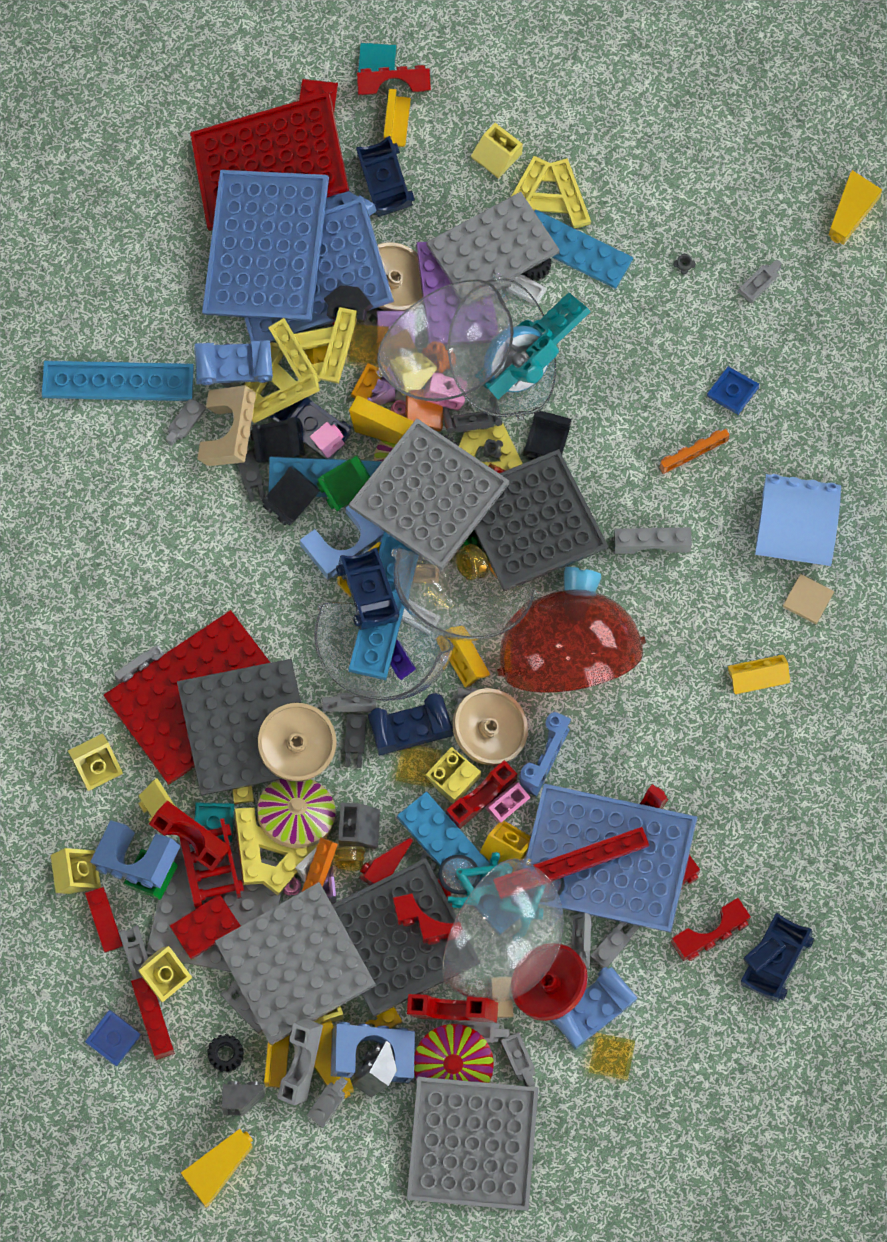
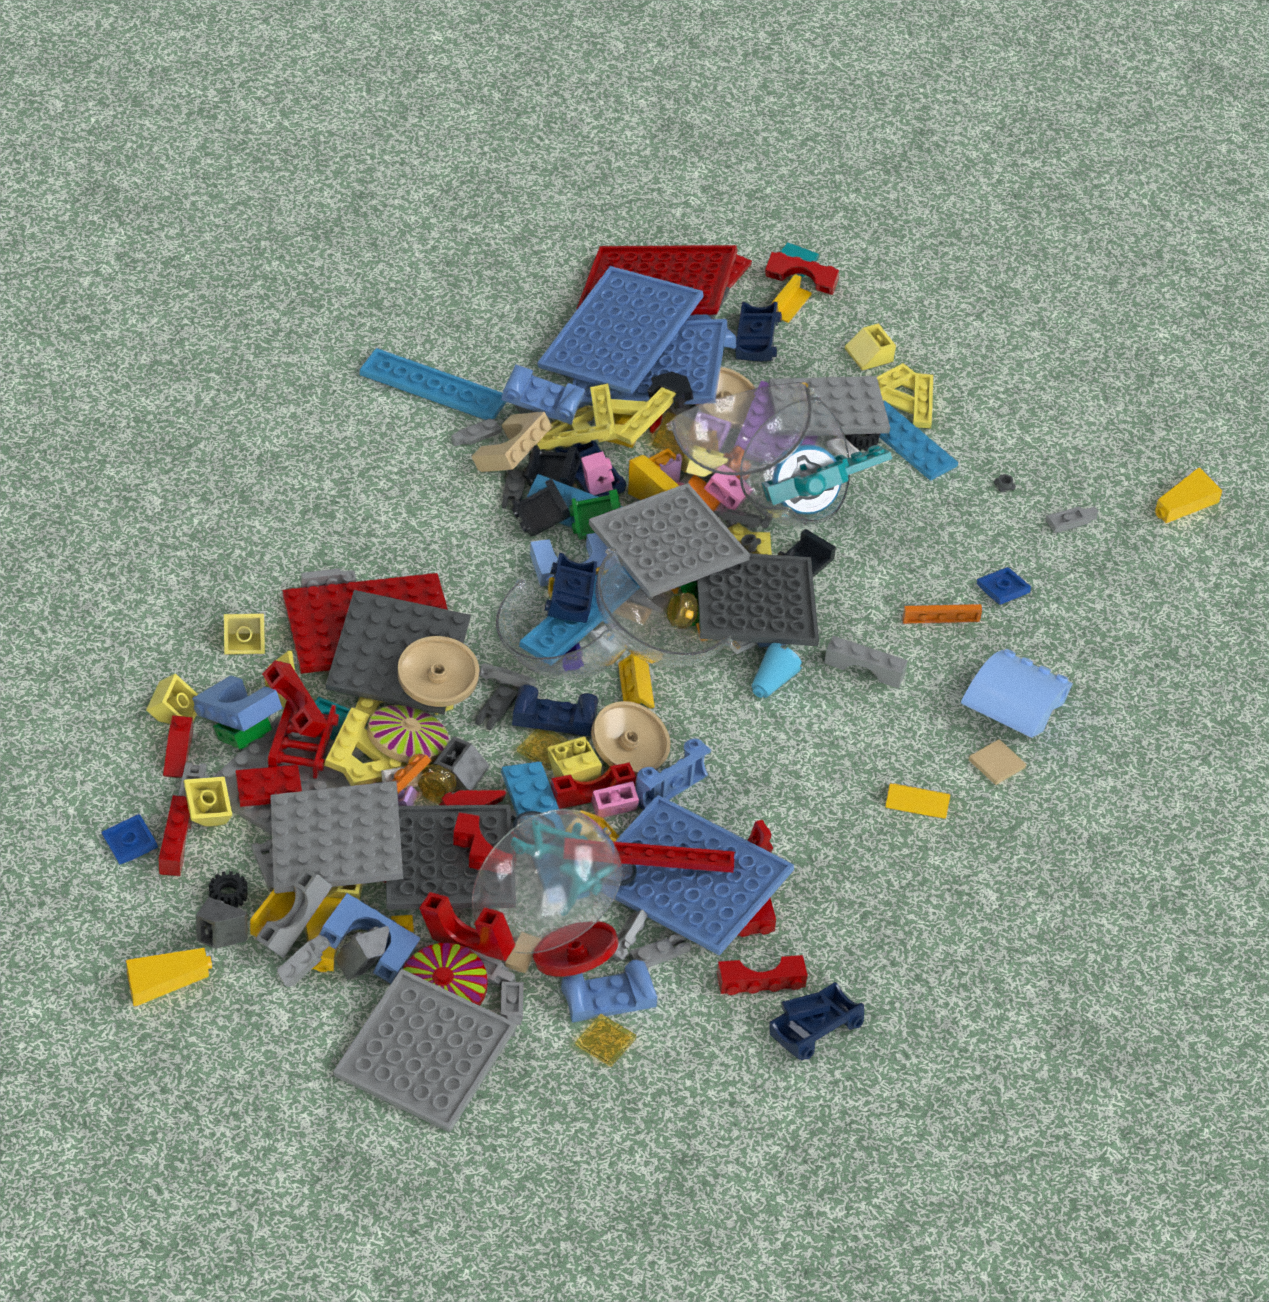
camera: 20 degrees right, 25 degrees down
(570, 643) = (746, 693): clear red windscreen -> none

